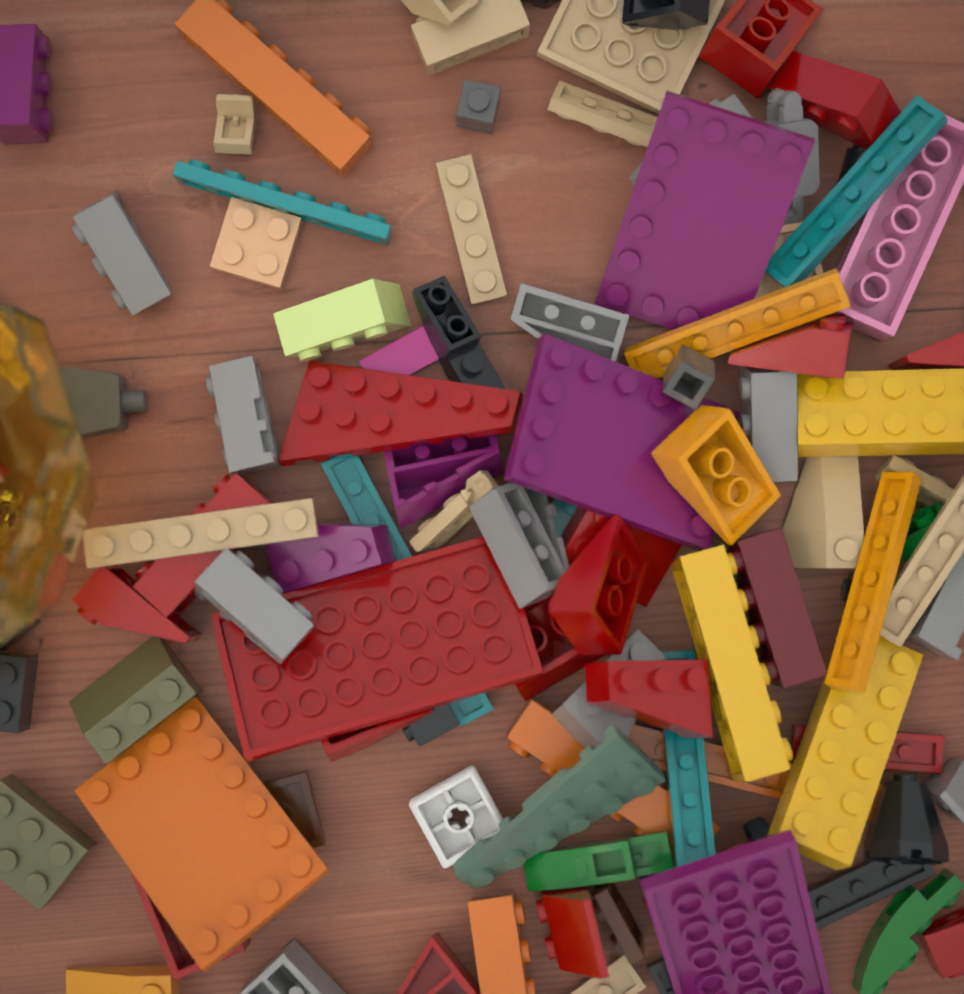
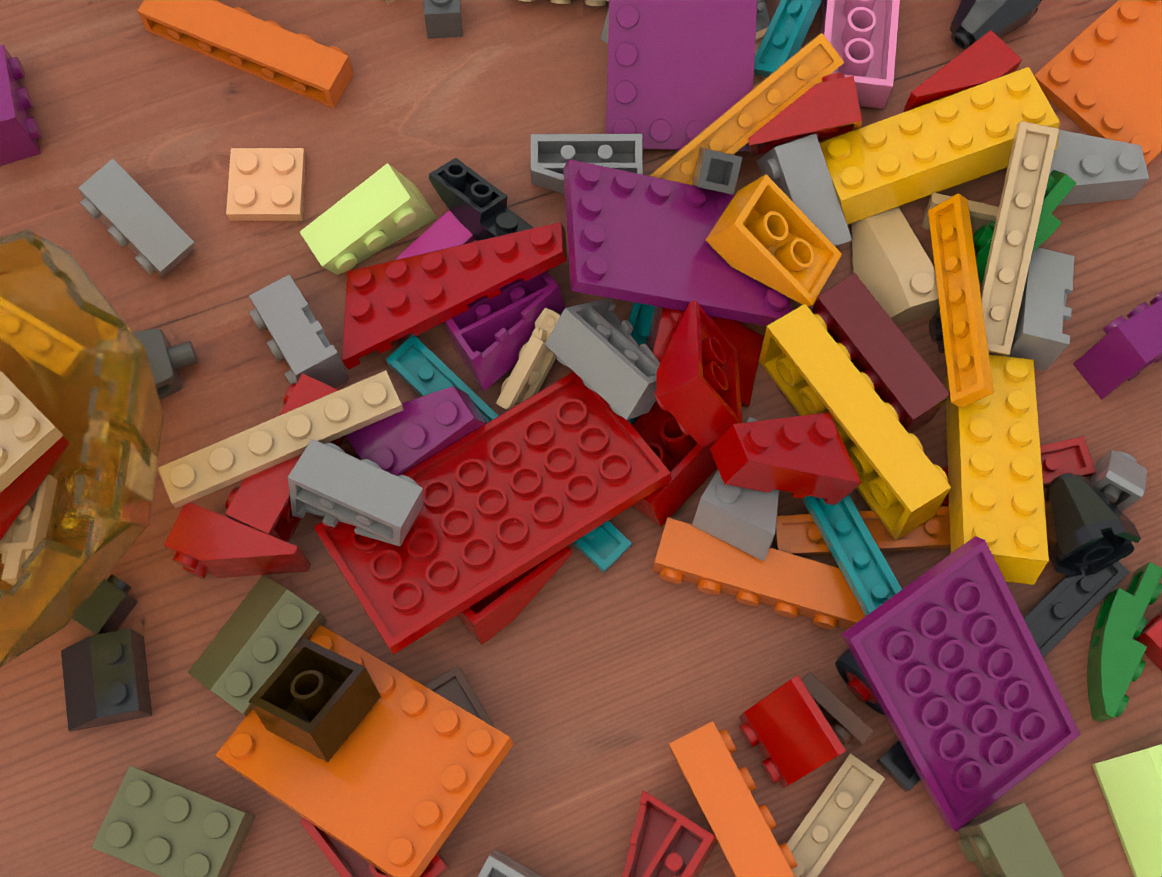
camera: 20 degrees left, 15 degrees down
(170, 779) = (315, 699): none -> dark brown brick
(234, 124) = (217, 83): tan bracket -> none
(266, 194) = (316, 139): teal plate -> none
(432, 726) = (573, 575): black brick -> none
(435, 808) = (630, 635): white brick -> none
(471, 230) = (469, 118): tan plate -> none
(564, 806) = (737, 602): sand green wing -> none
(599, 862) = (783, 659): green slope -> none

